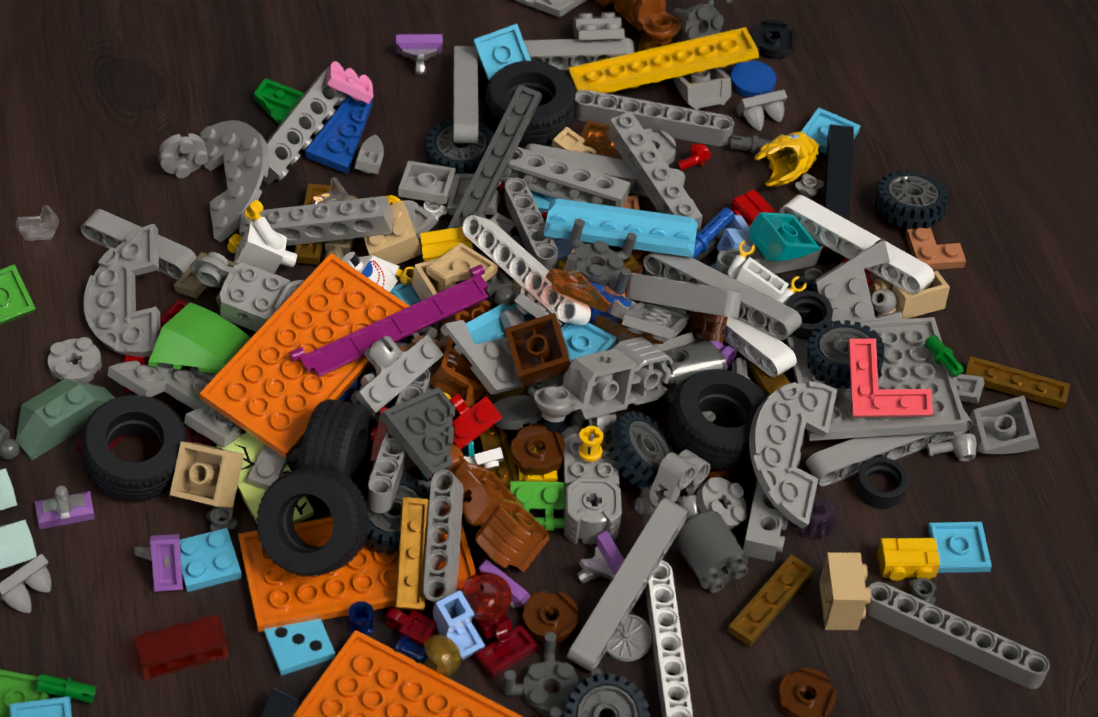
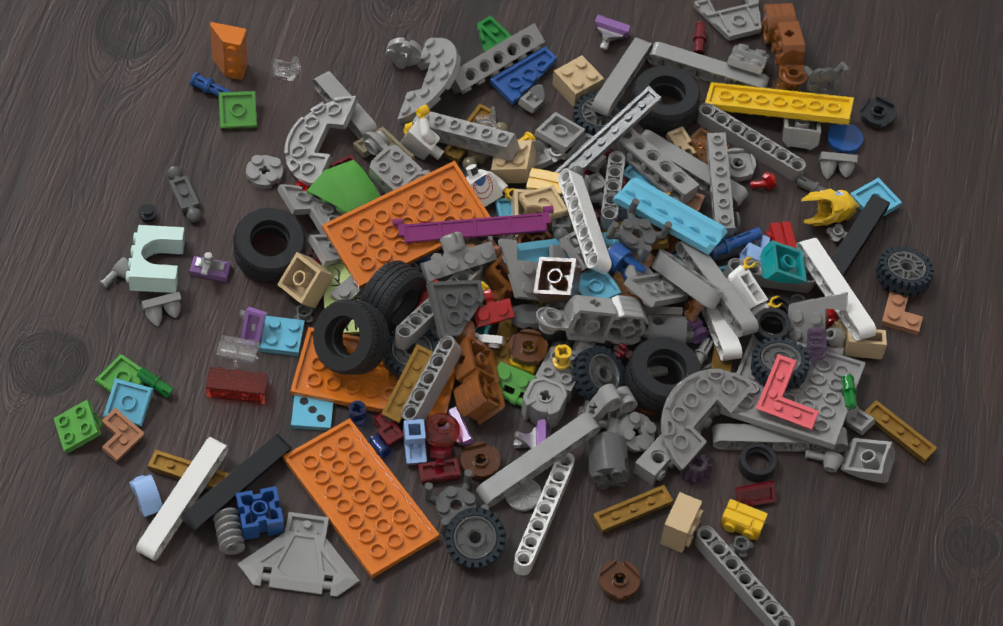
camera: 25 degrees right, 5 degrees up
(57, 415) = (234, 202): sand green wedge -> none
(160, 599) = (238, 349): none -> clear panel
(349, 83) = (543, 39): bright pink plate -> none
(412, 117) = (577, 79): none -> tan brick
(444, 653) = (395, 456): clear yellow hair -> none
(501, 49) = (665, 52): medium azure plate -> none
(526, 23) = (699, 38): none -> dark red pin
(577, 287) = (606, 246): clear orange wing -> none
(652, 410) = (622, 351): none -> dark red plate
(873, 312) = (816, 343): none -> clear purple gear
(904, 520) = (756, 493): none -> dark red plate
(960, 546) = (786, 527): medium azure tile -> none

